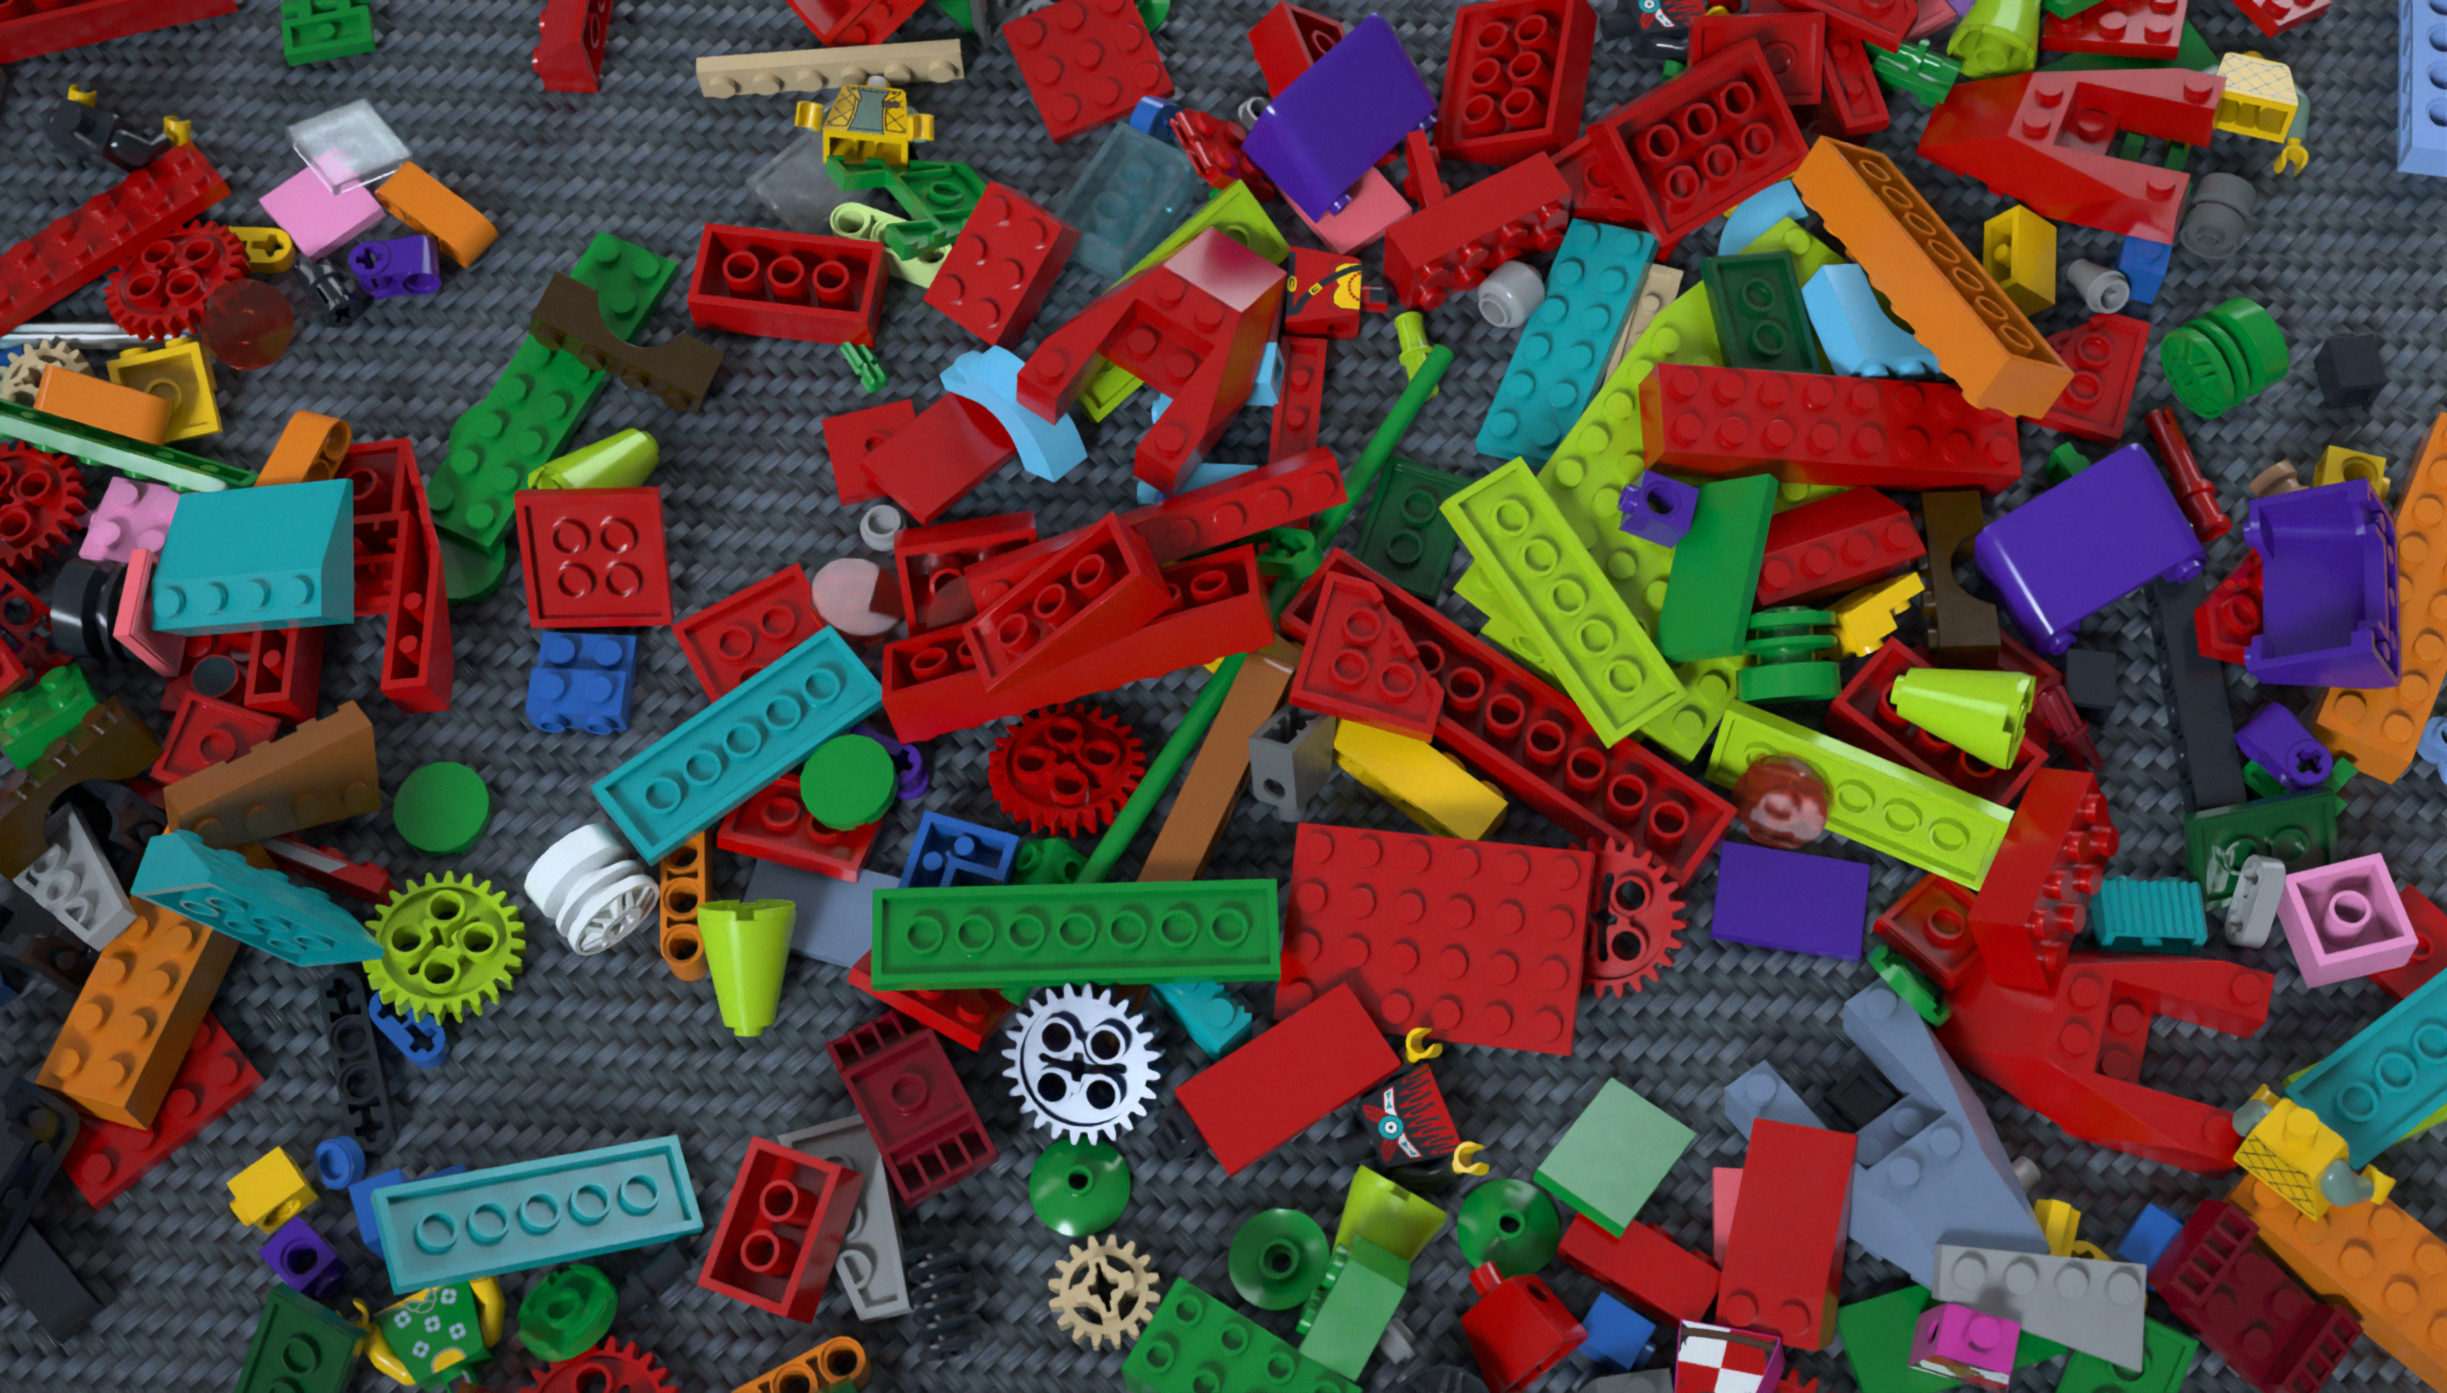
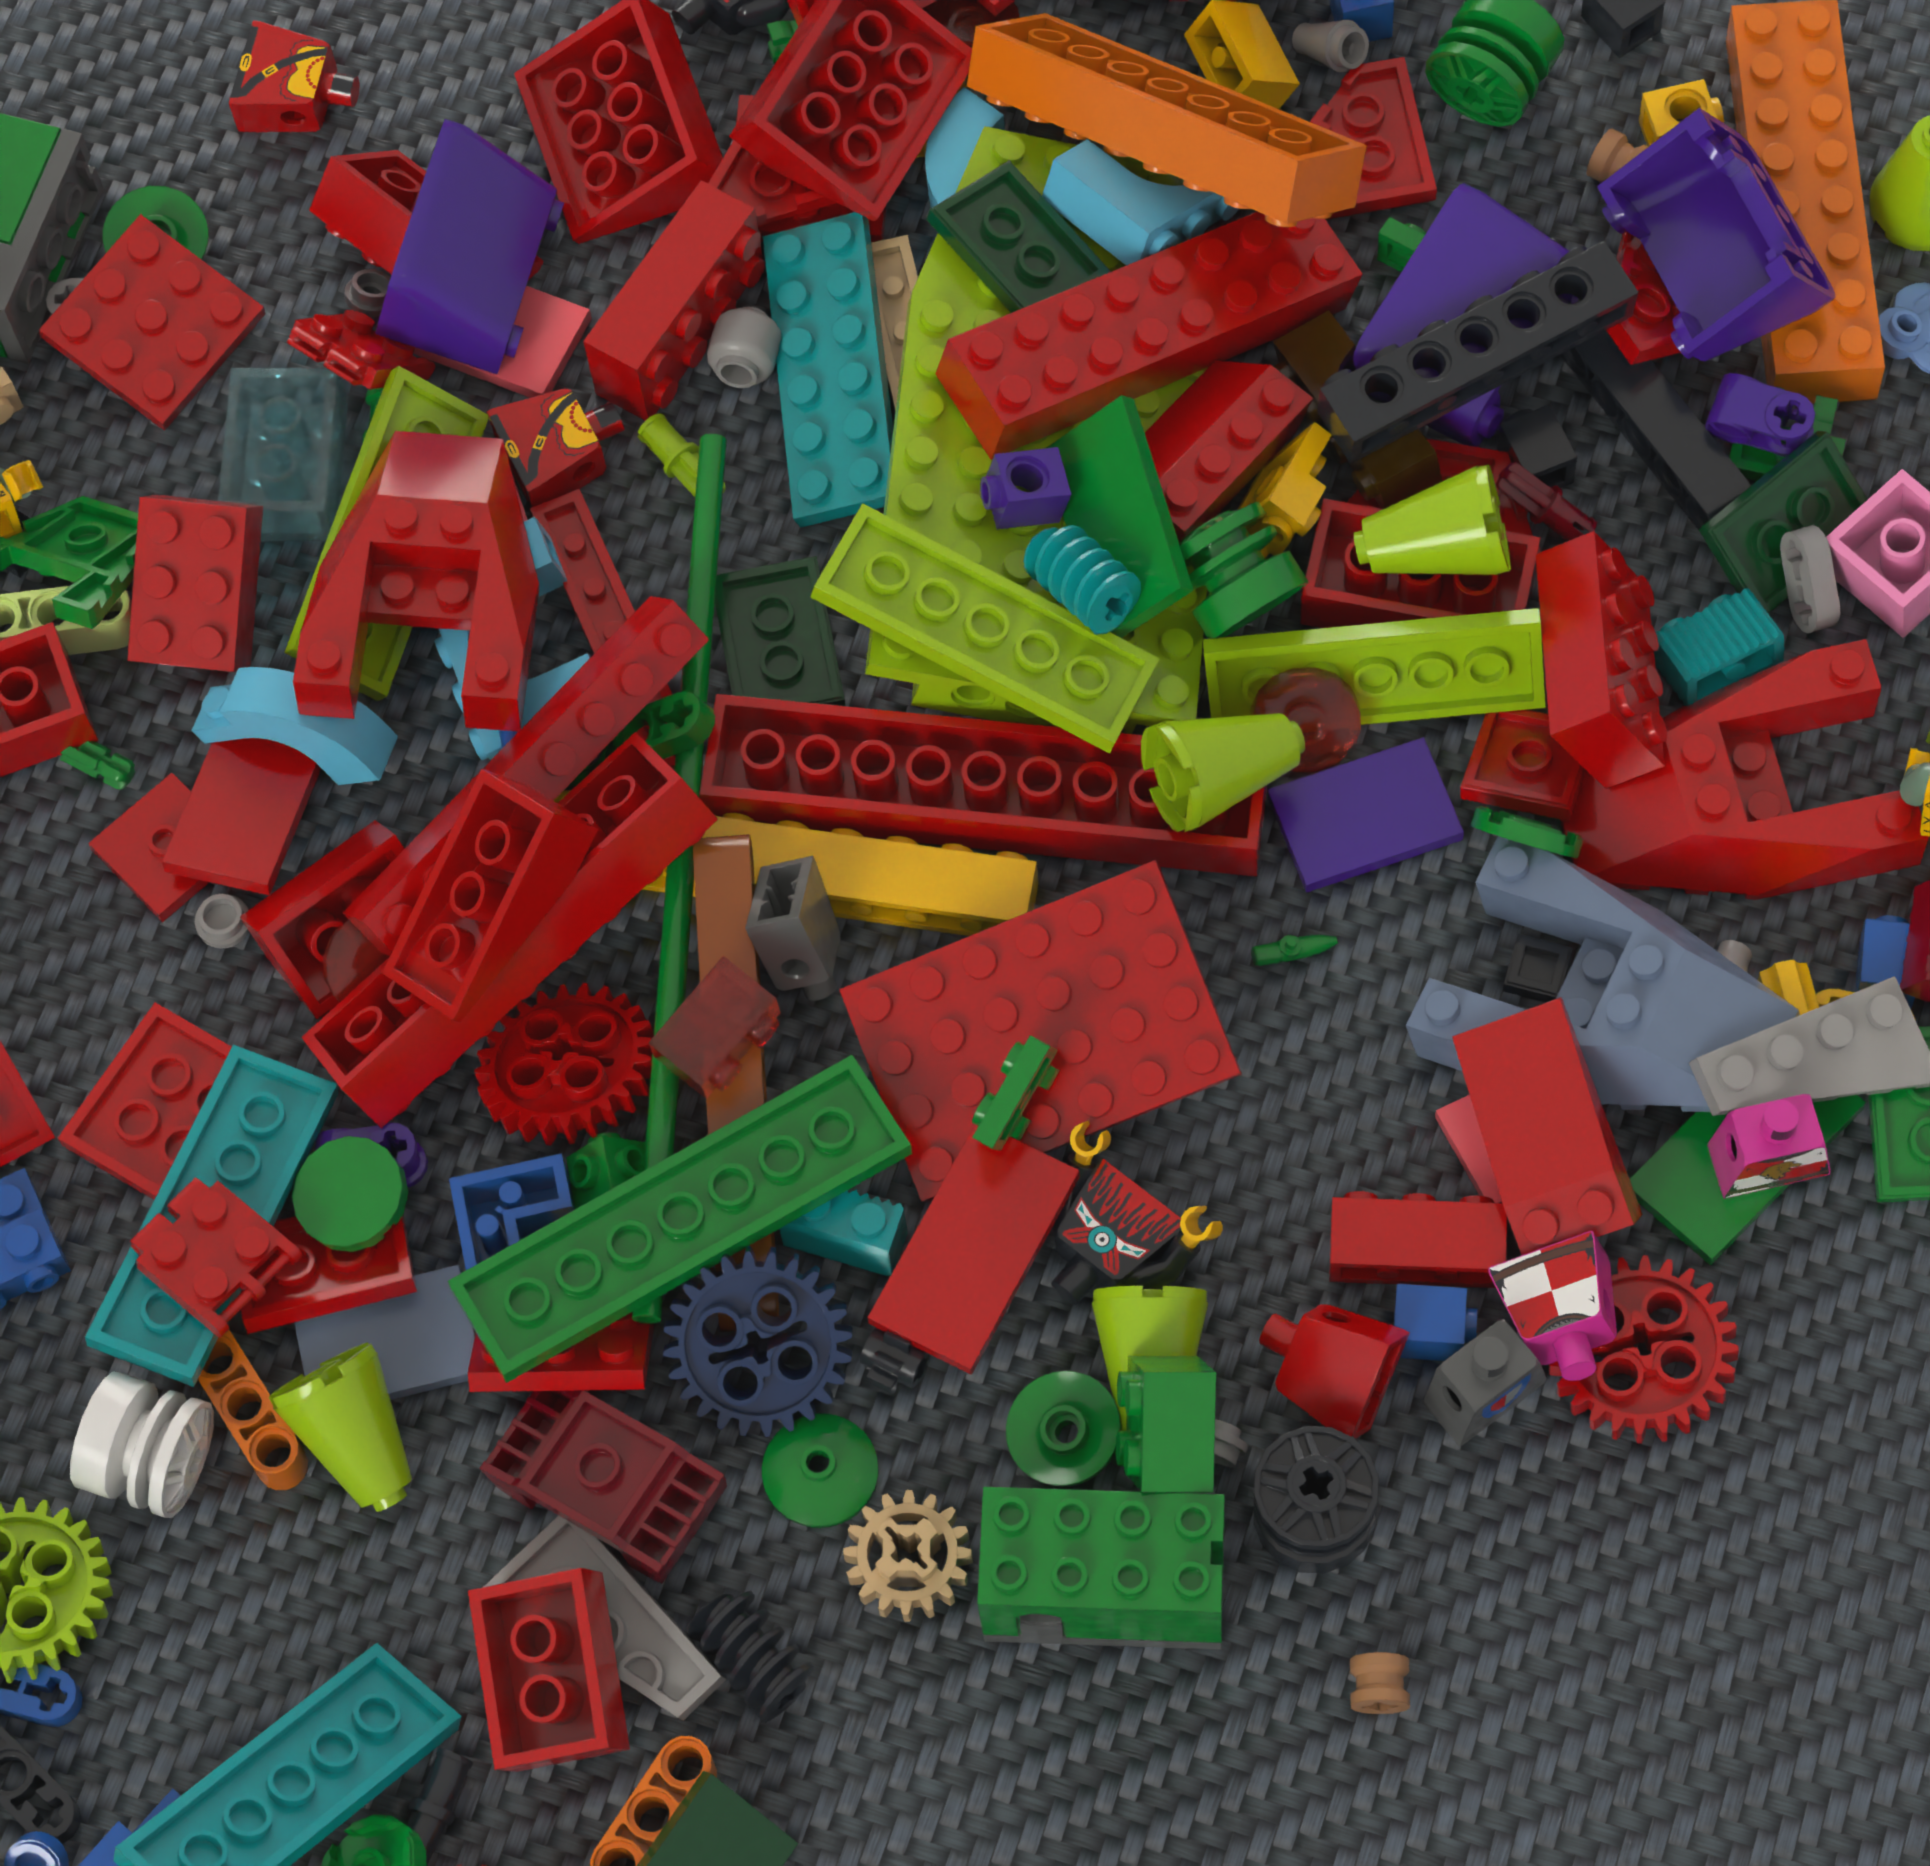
camera: 25 degrees left, 0 degrees up
(718, 772) = (211, 1252): none -> red plate
(856, 600) = (241, 1007): tile -> none
(1153, 117) = (265, 345): blue beam -> none
(1183, 803) = (716, 1028): none -> clear red brick
(1364, 664) = (817, 796): red plate -> none
(1365, 987) = (1002, 1114): none -> green plate
(1422, 176) = (584, 267): red plate -> none
(1514, 1253) = (1251, 1300): green dish -> none
(1614, 1157) = (1336, 1150): tile -> none
(1651, 922) = (1245, 903): red gear -> none
(1661, 600) = (1082, 577): none -> teal piece
(1682, 979) = (1291, 949): none -> green helmet
(1687, 800) = (1216, 763): none -> lime cone
(1954, 596) = (1367, 426): none -> black brick
(2192, 492) = (1534, 204): red pin -> none

